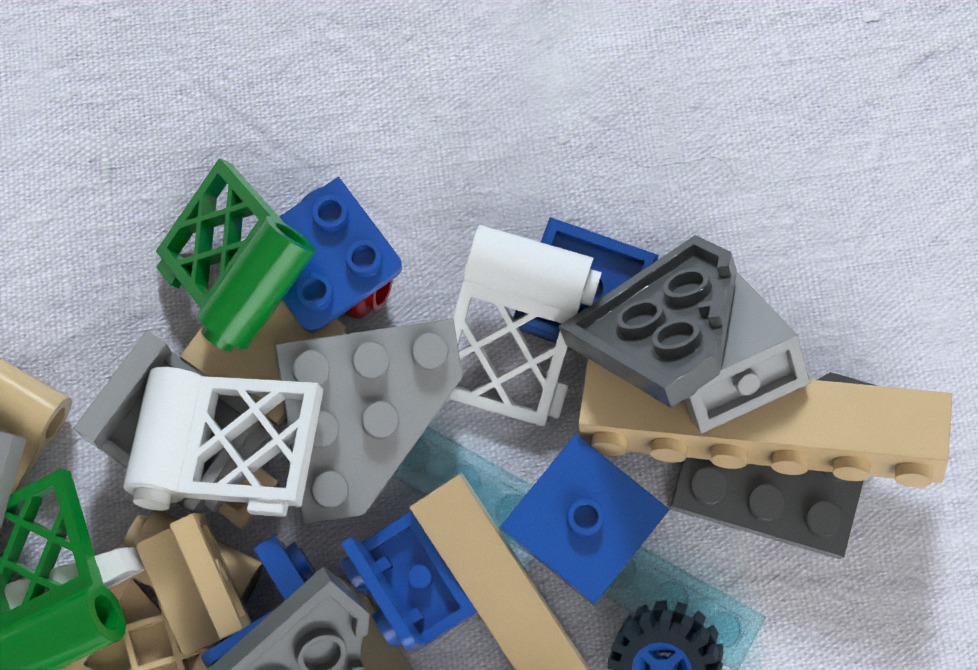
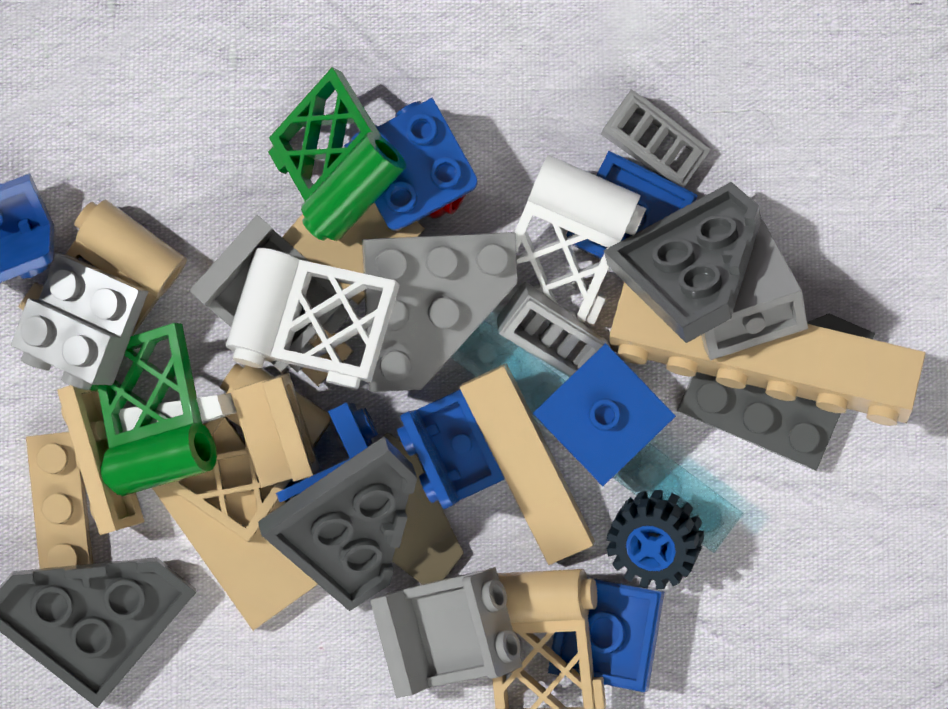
camera: 10 degrees right, 10 degrees up
(479, 441) = (545, 308): none -> light grey slope
(612, 184) = (651, 114): none -> light grey slope

